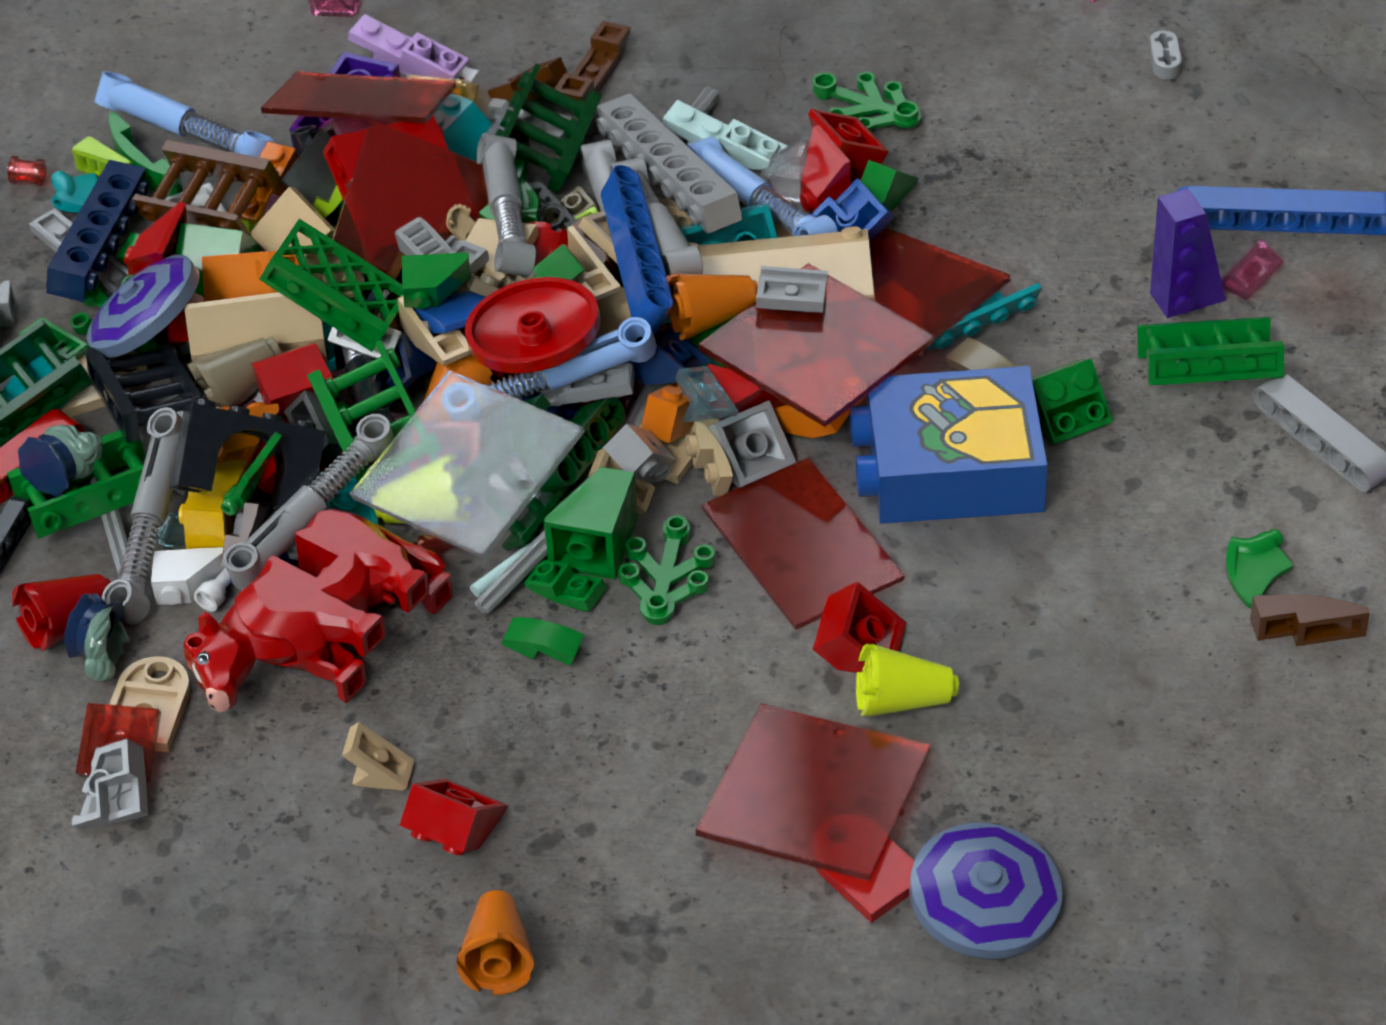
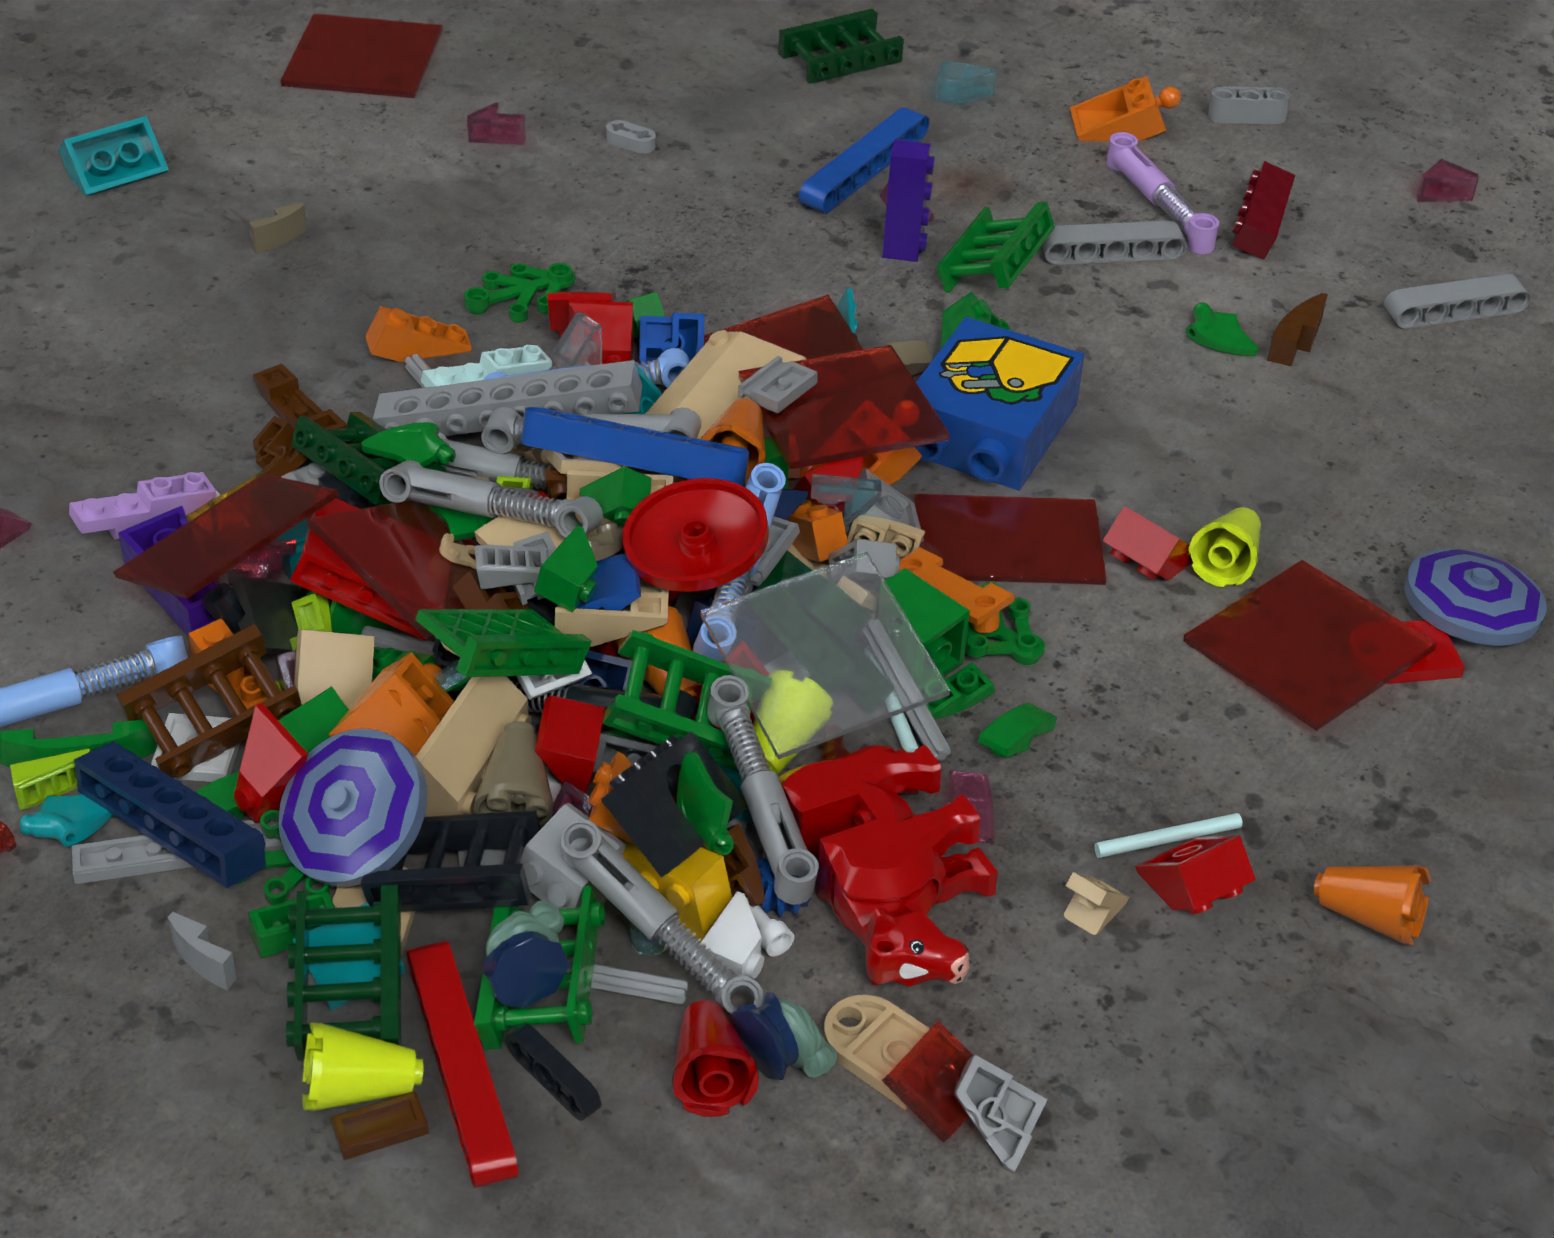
camera: 65 degrees left, 5 degrees down
(428, 645) = (978, 792): none -> clear pink slope
(495, 786) = (1168, 835): none -> light aqua bar
(570, 139) = (411, 442): none -> green arm
(665, 522) = (982, 602): none -> orange brick
(737, 78) = (400, 335): none -> orange slope

